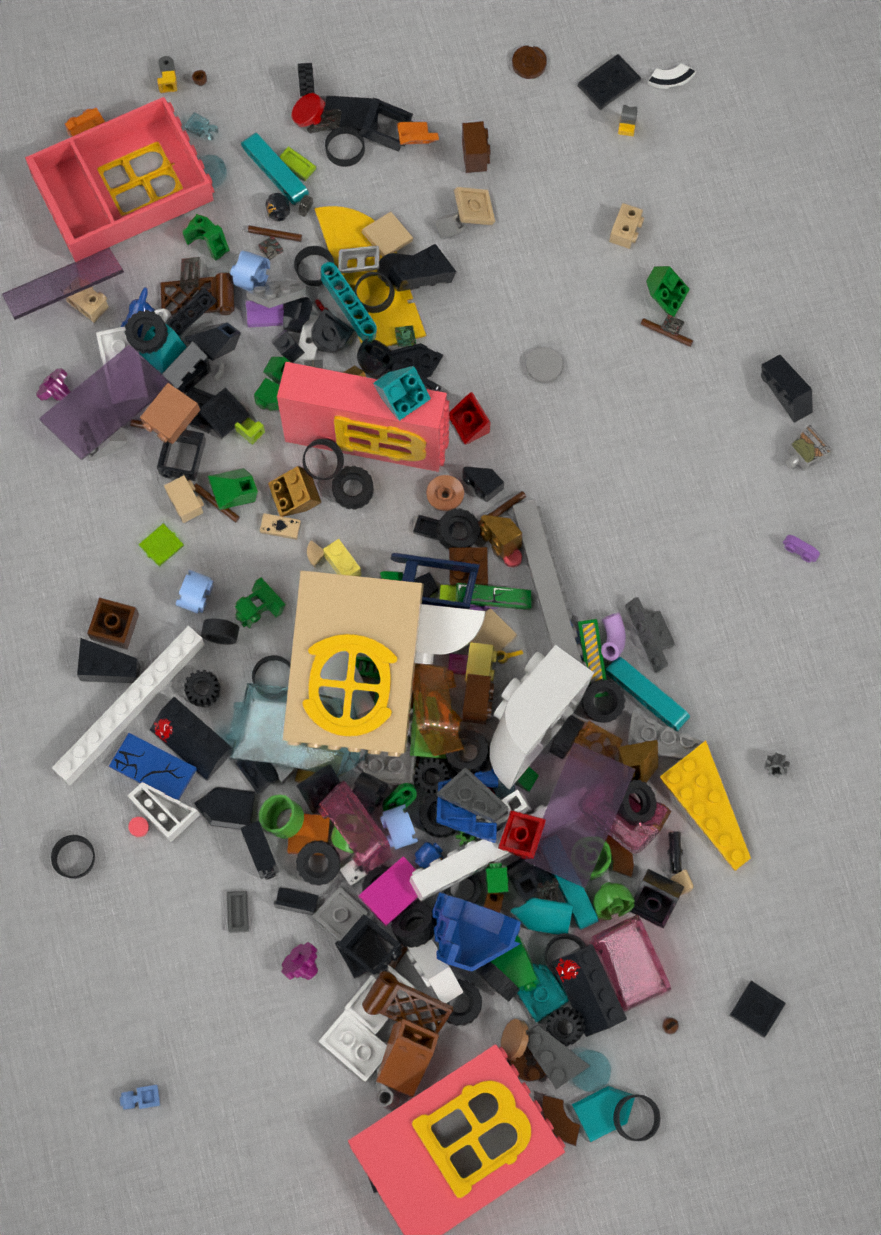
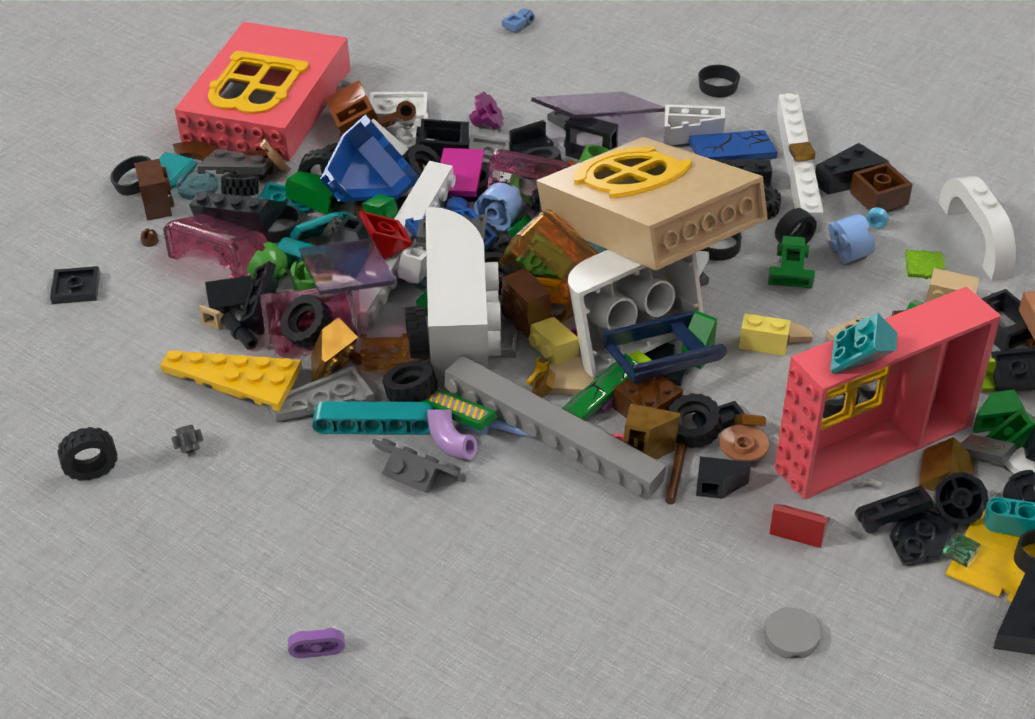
camera: 140 degrees right, 30 degrees down
(73, 563) = (974, 195): none -> white arch
(136, 690) = (802, 151): none -> pearl gold tile
(145, 604) = (877, 218): none -> medium azure tile
(217, 881) = (598, 104): none -> clear purple piece
(425, 504) = (752, 420): none -> pearl gold tile
(519, 634) = (544, 383): none -> pearl gold tile
(638, 1069) = (154, 189): none -> reddish brown brick
(646, 860) = (262, 283): none -> black panel
(852, 790) = (86, 439): none -> black tyre

